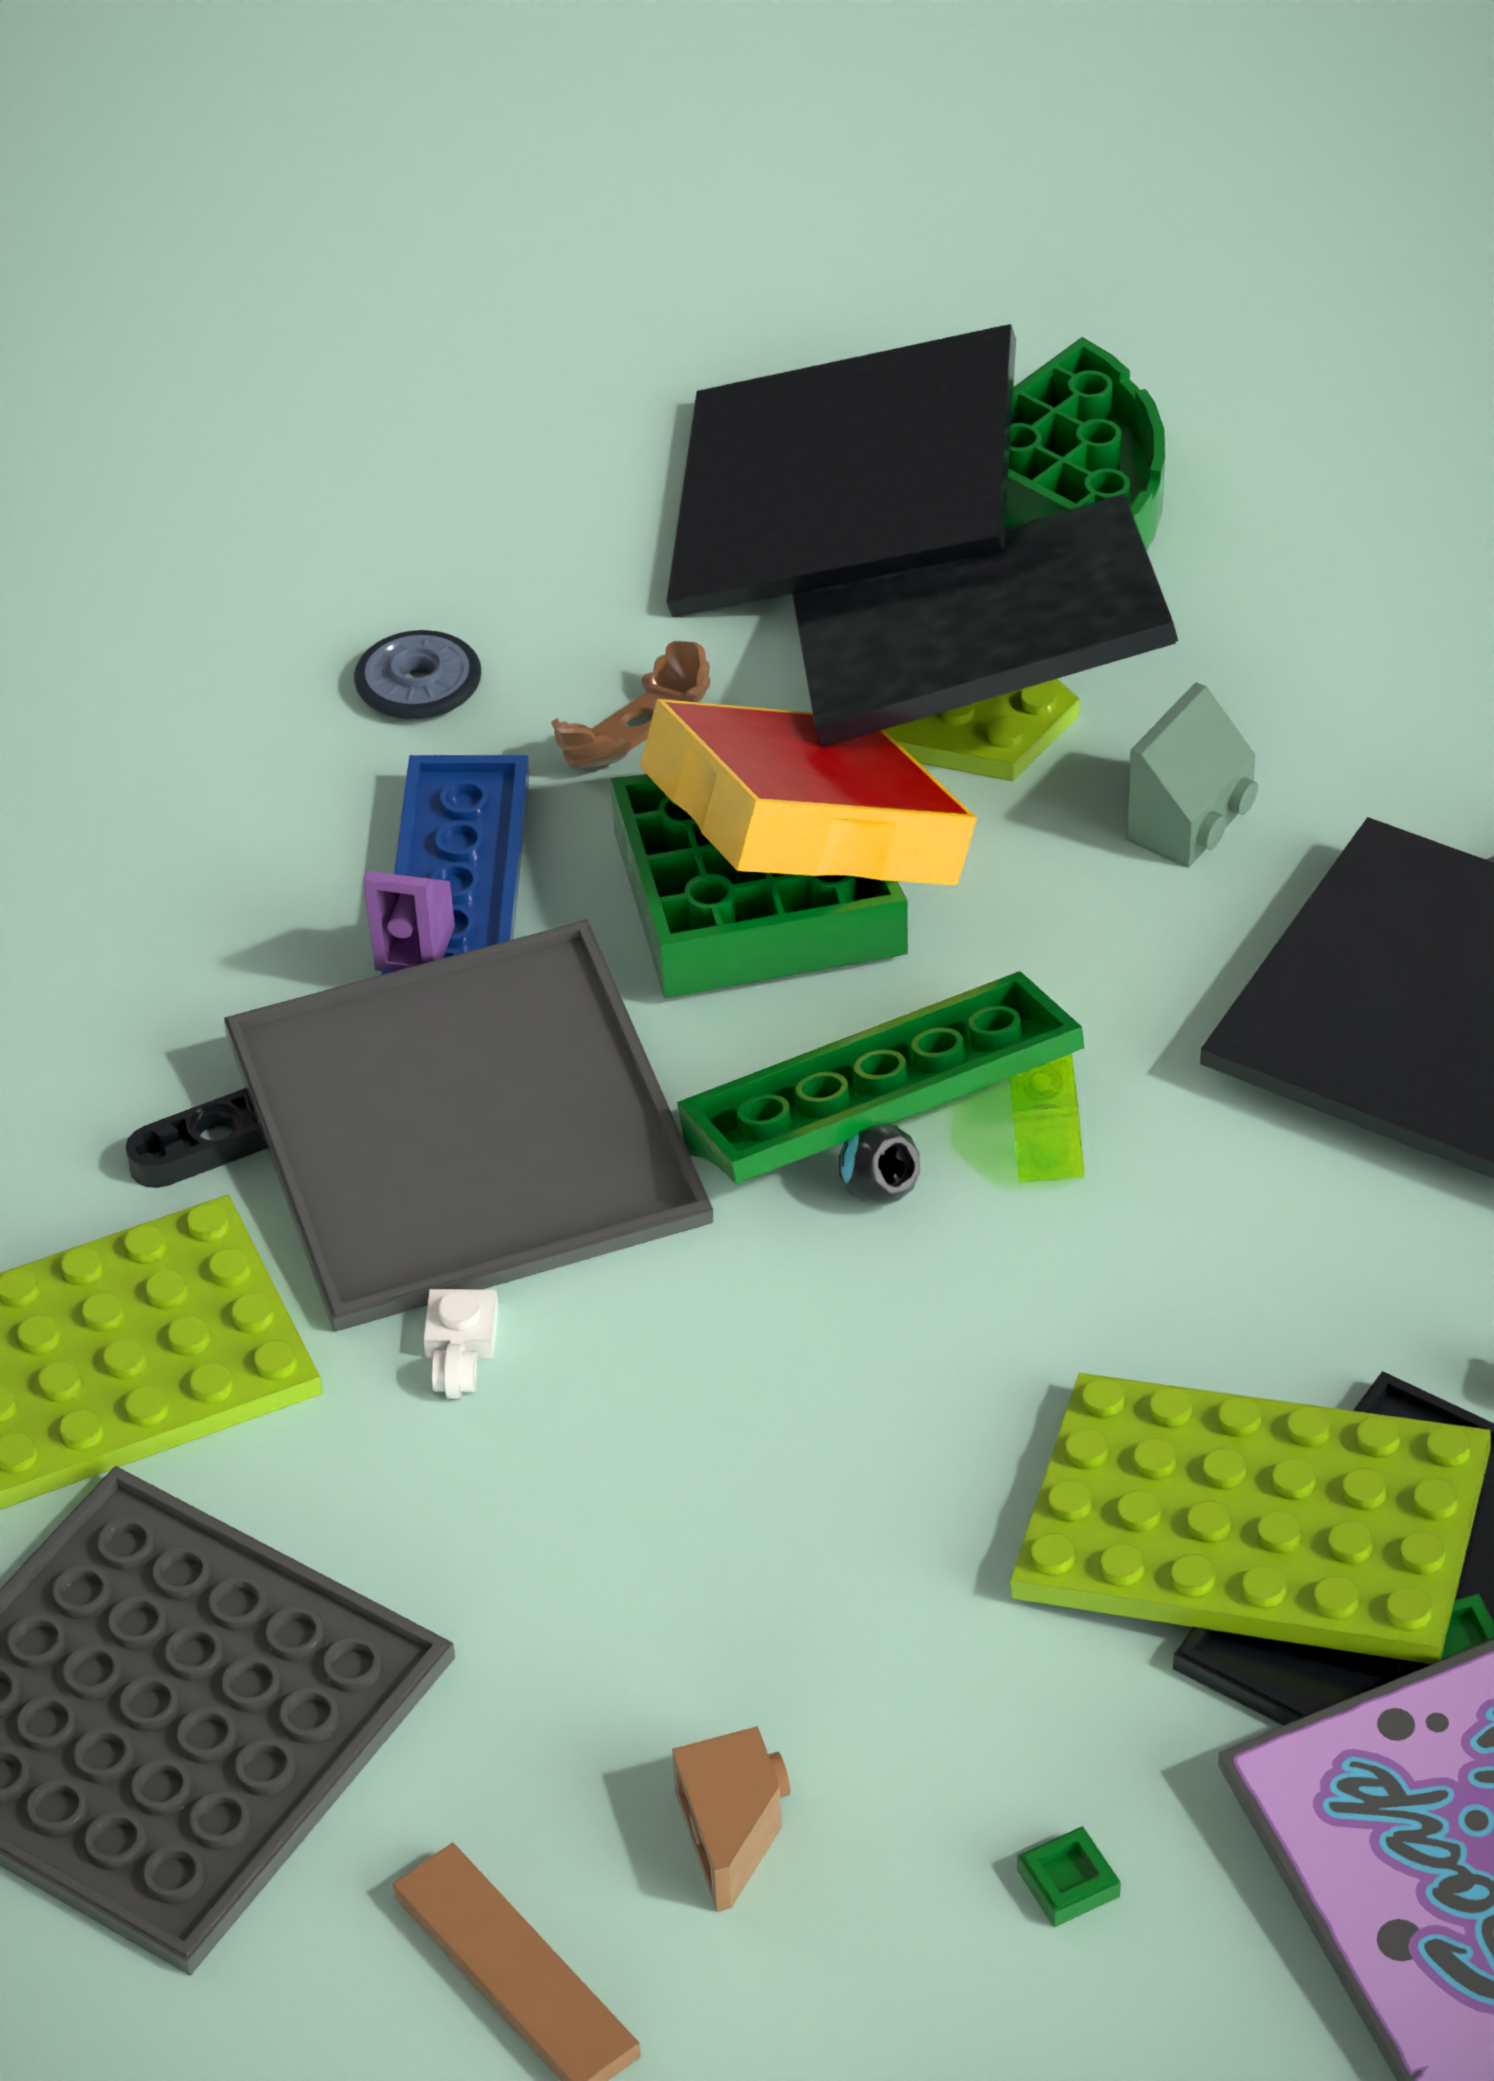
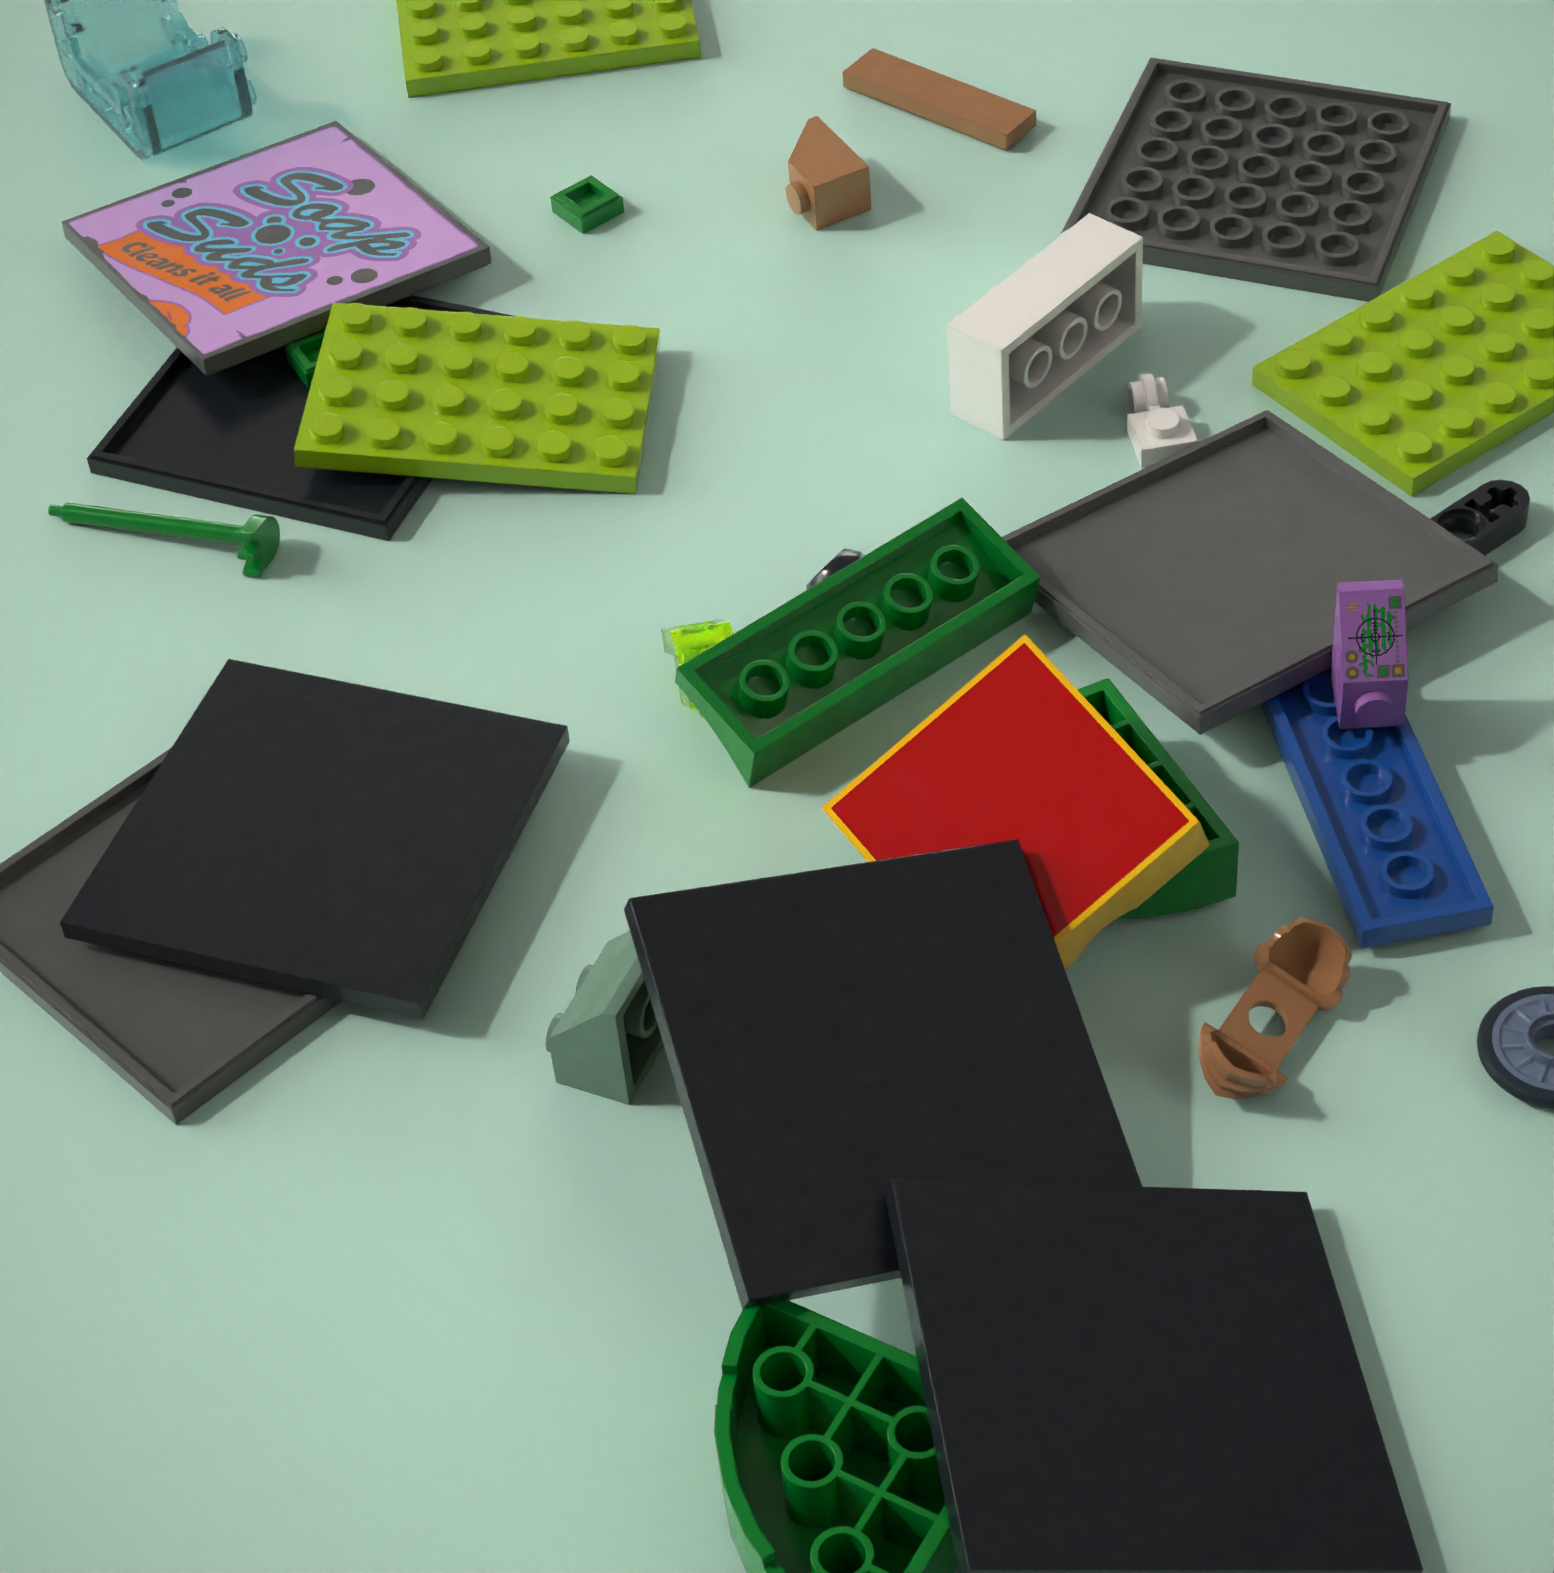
camera: 170 degrees right, 0 degrees up
(542, 1423) = (1045, 326): none -> white brick

